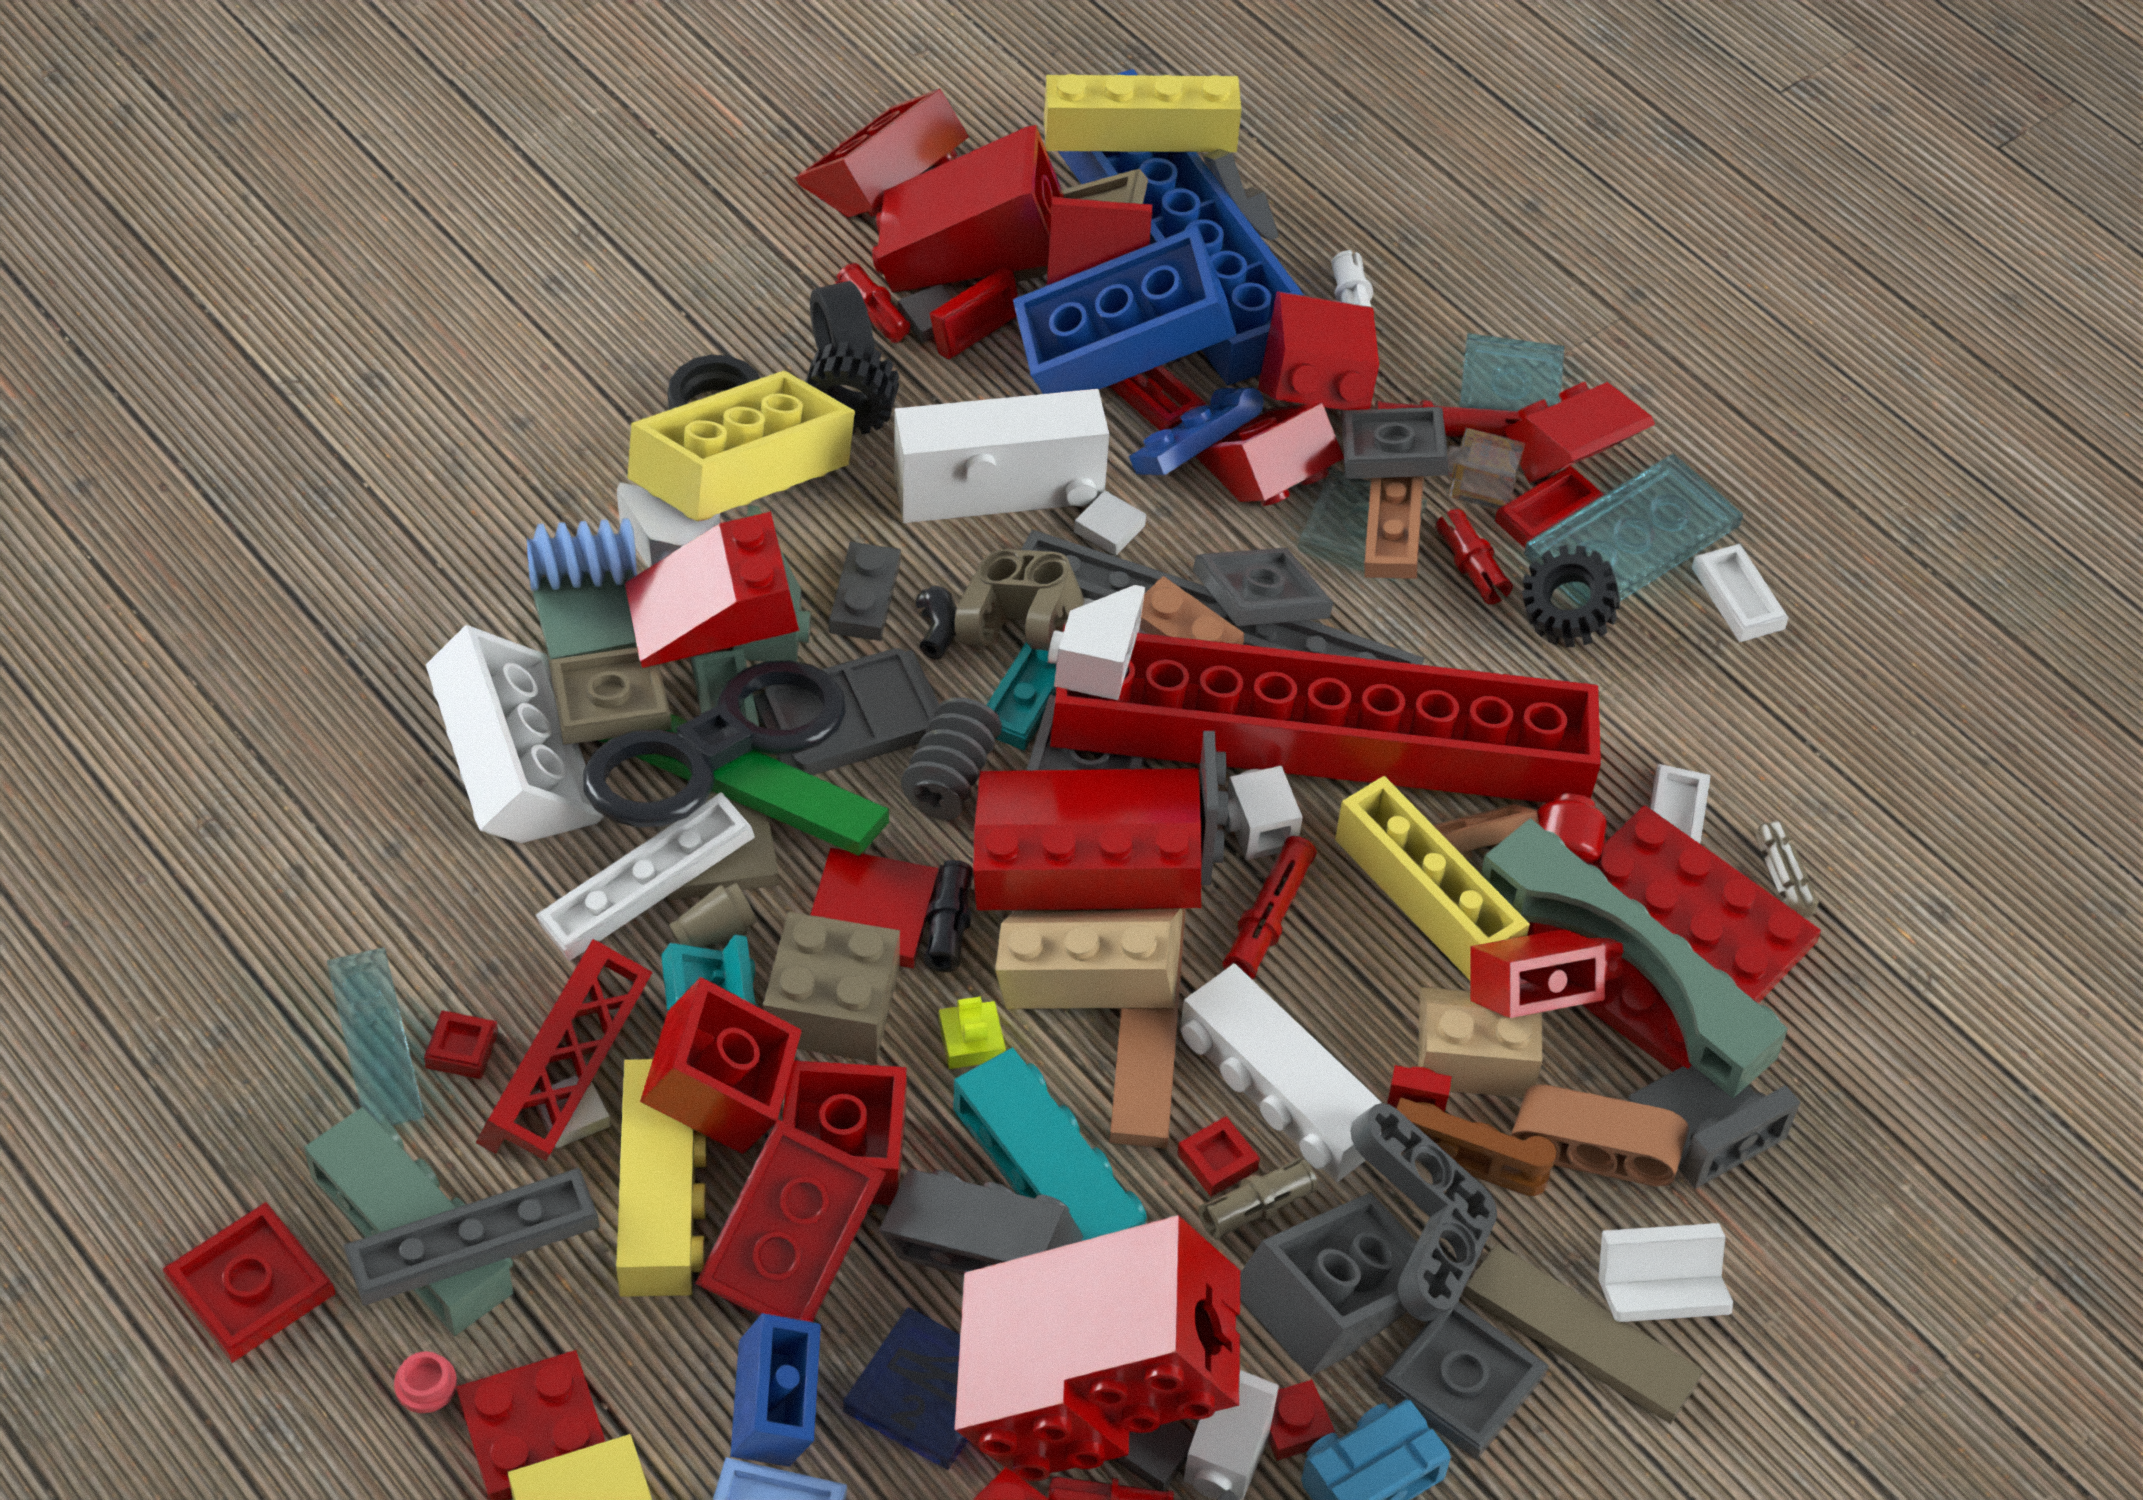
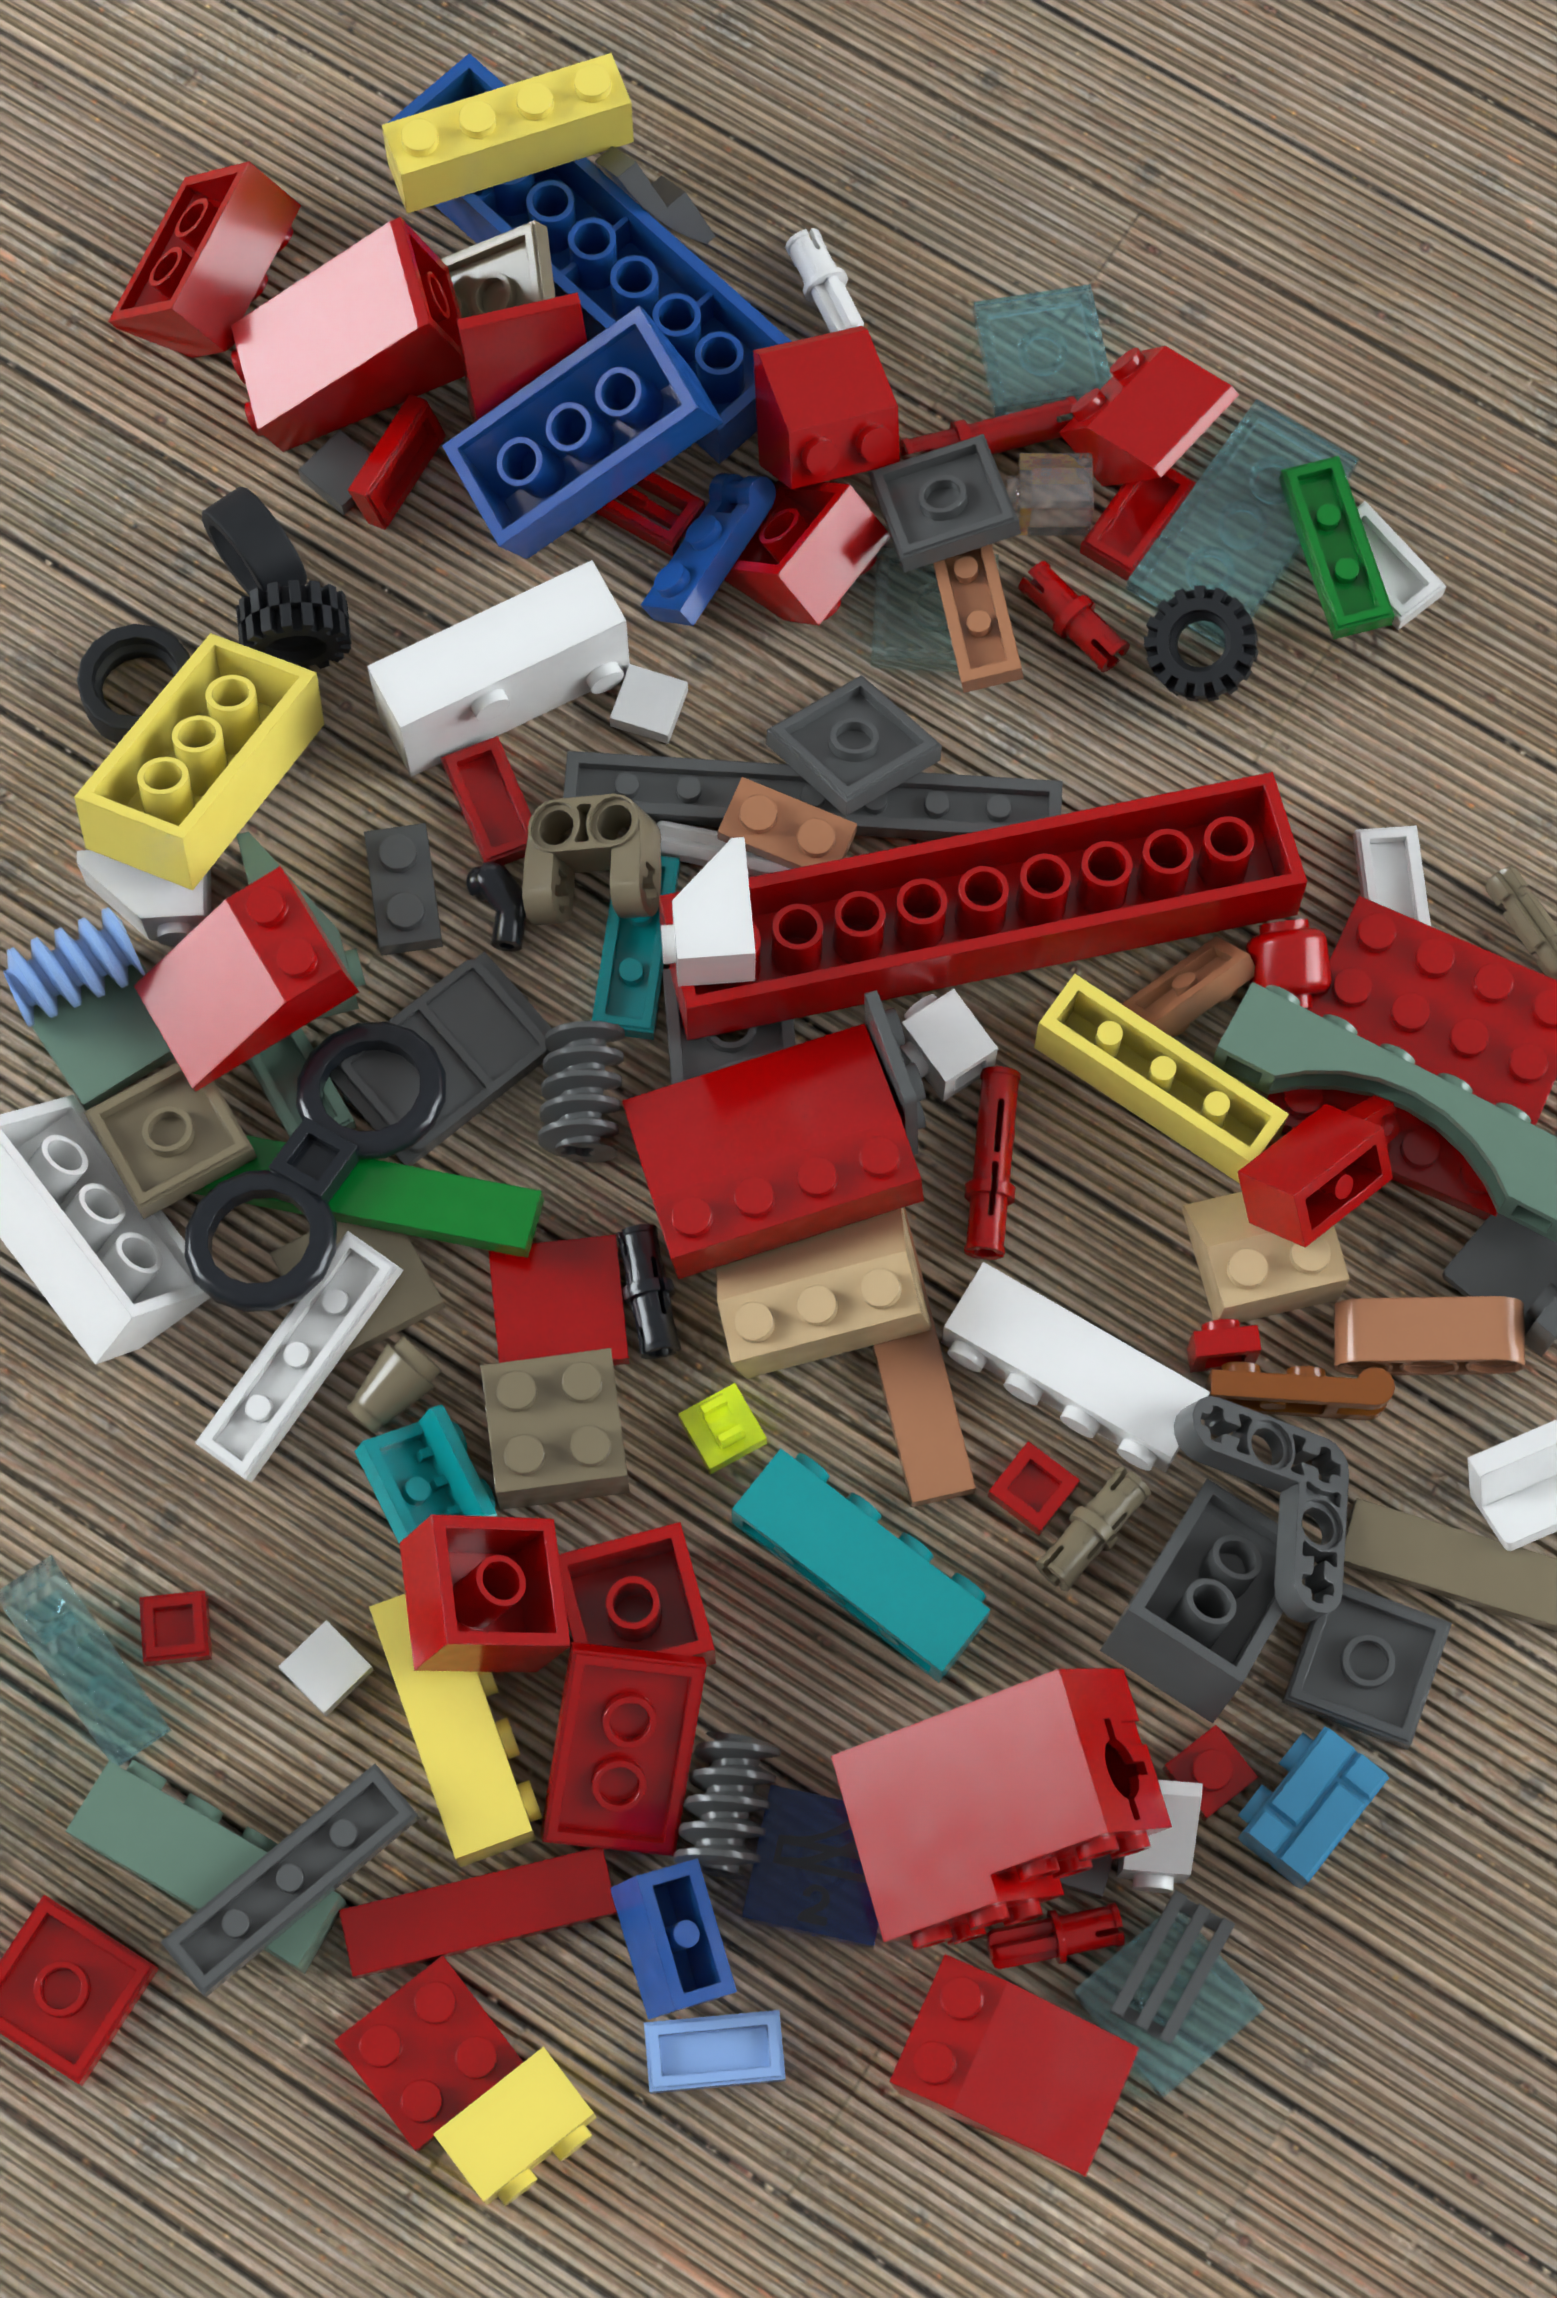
camera: 15 degrees left, 20 degrees up
(425, 1382) = (298, 2044): coral plate -> none
(544, 1051) = (271, 1608): red fence -> none
(619, 1330) = (477, 1912): none -> red tile
(863, 1303) = (726, 1803): none -> dark grey piece
(877, 301) = (269, 481): red axle -> none
(956, 548) = (489, 800): none -> red tile
(971, 1226) = (823, 1681): dark grey brick -> none
(1704, 564) = (1336, 547): none -> green tile

